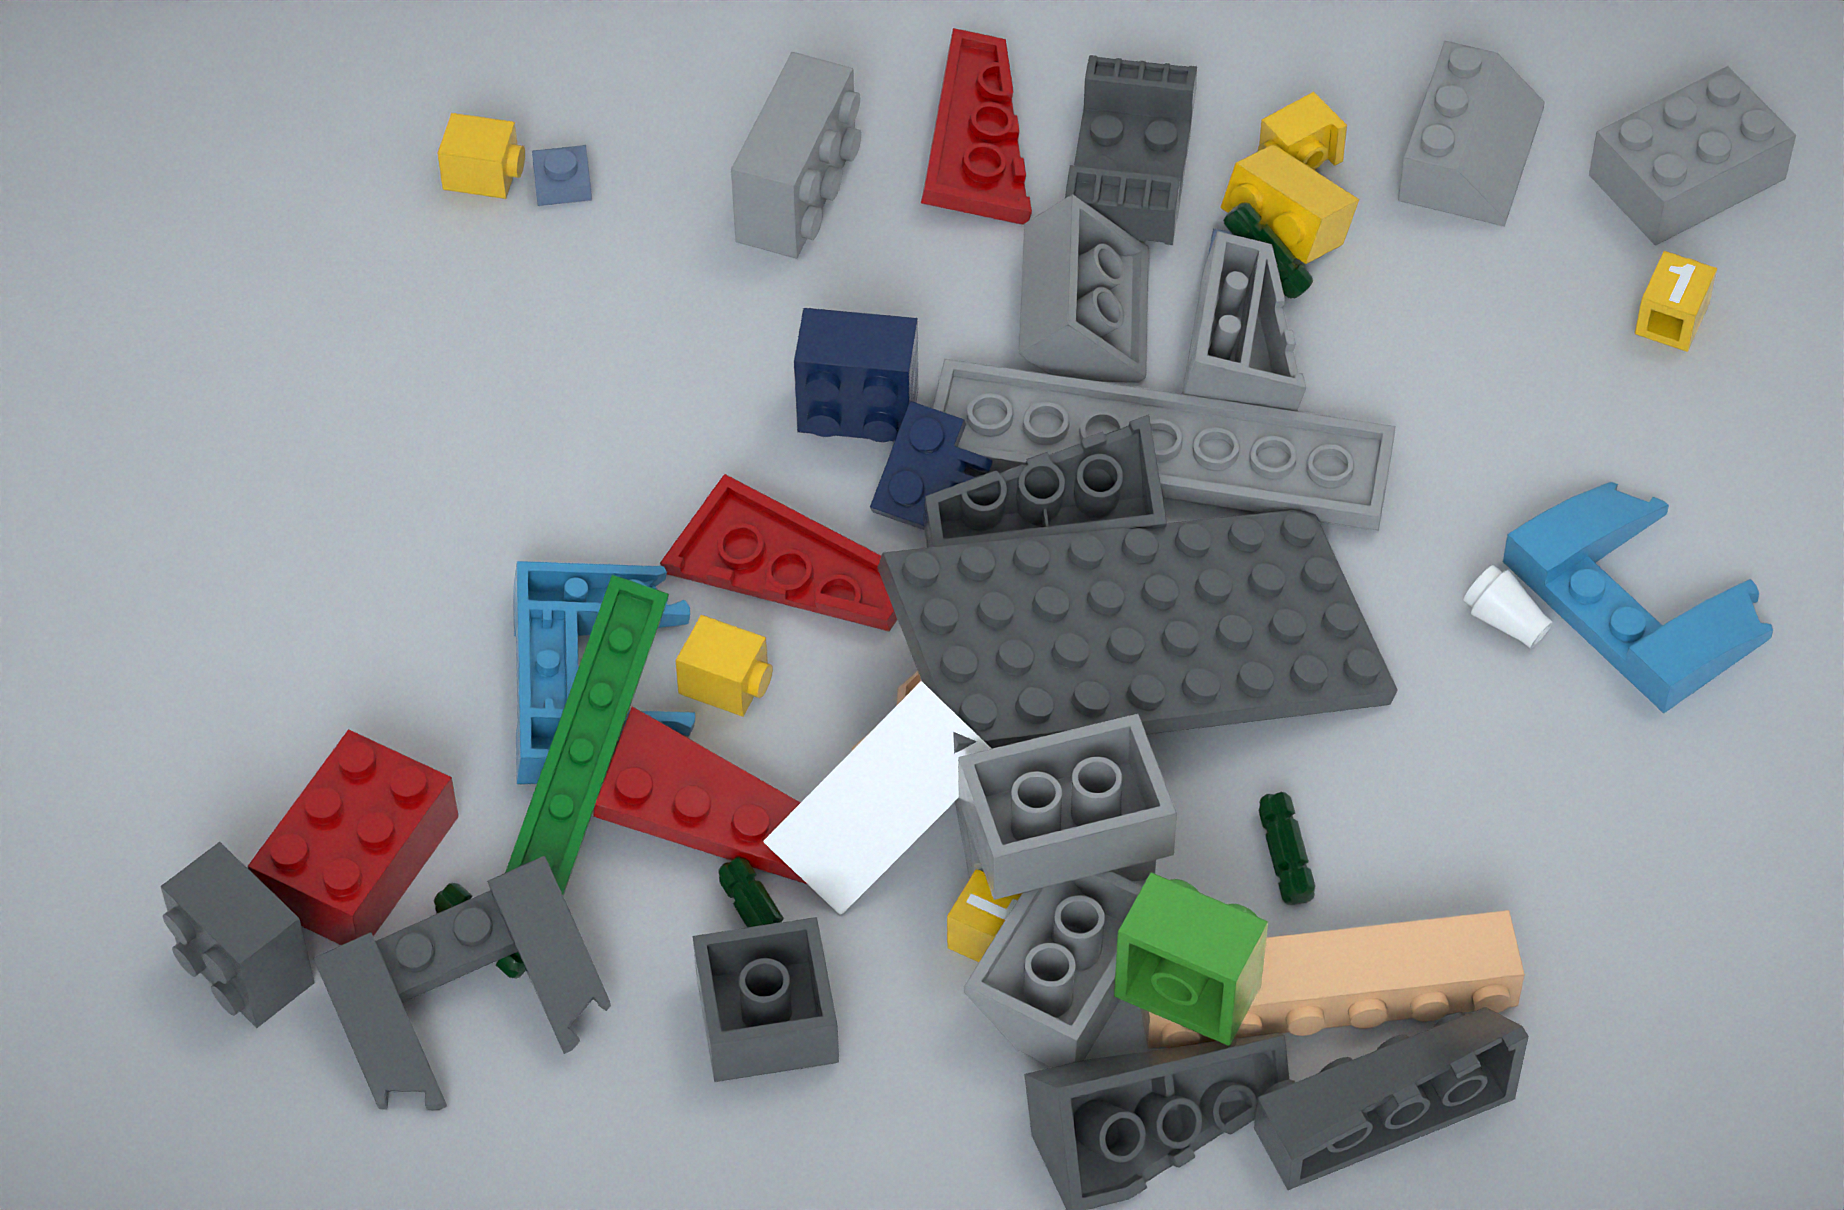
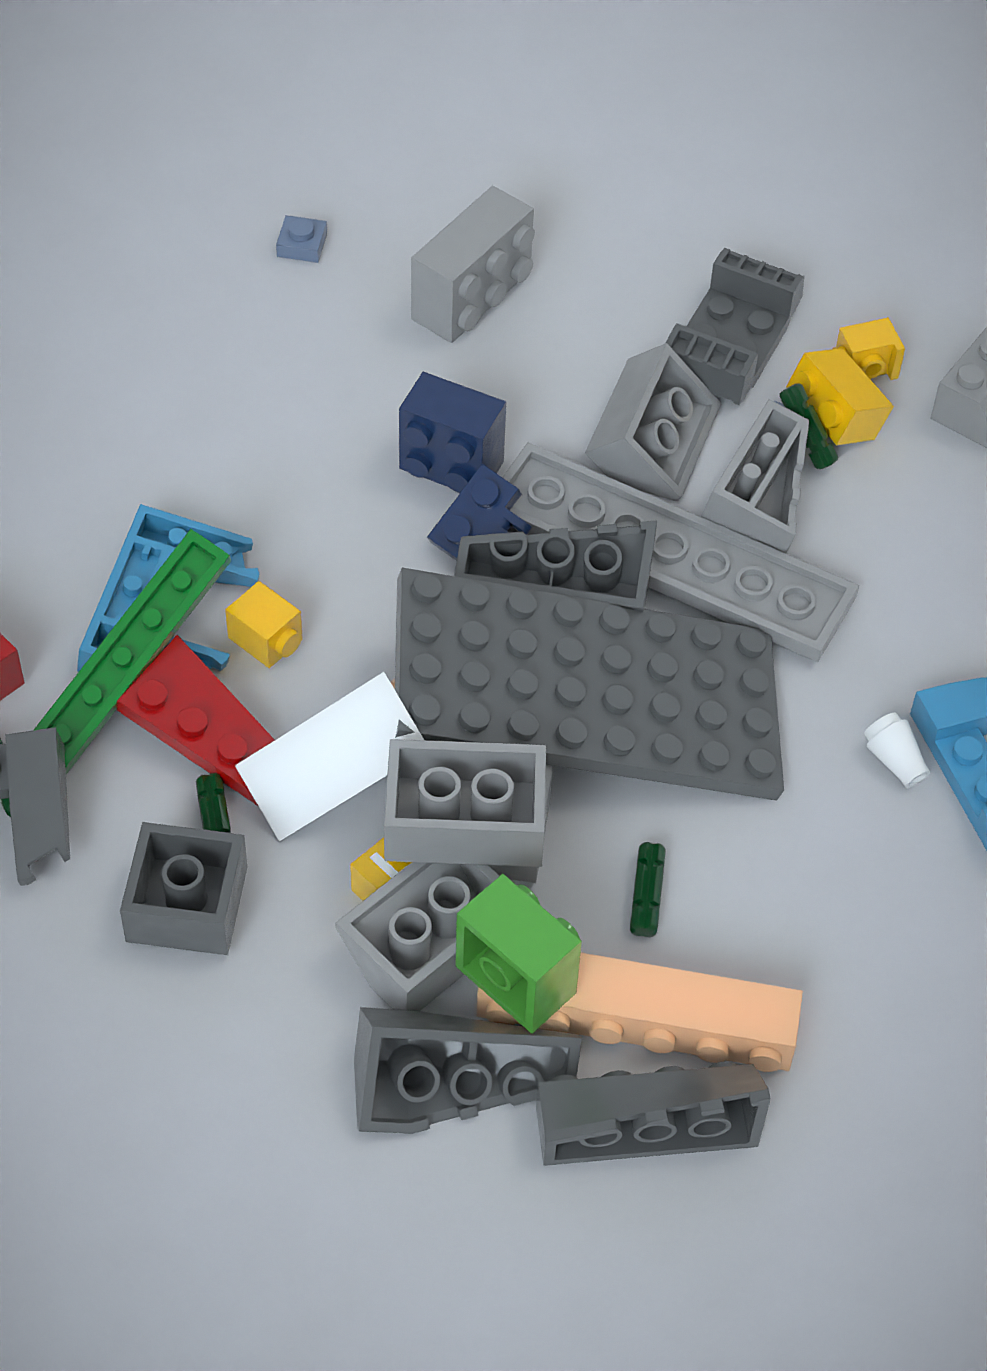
camera: 15 degrees right, 0 degrees up
(480, 156) = (244, 208): yellow brick -> none
(779, 555) = (336, 550): red wing -> none
(975, 135) = (618, 290): red wing -> none

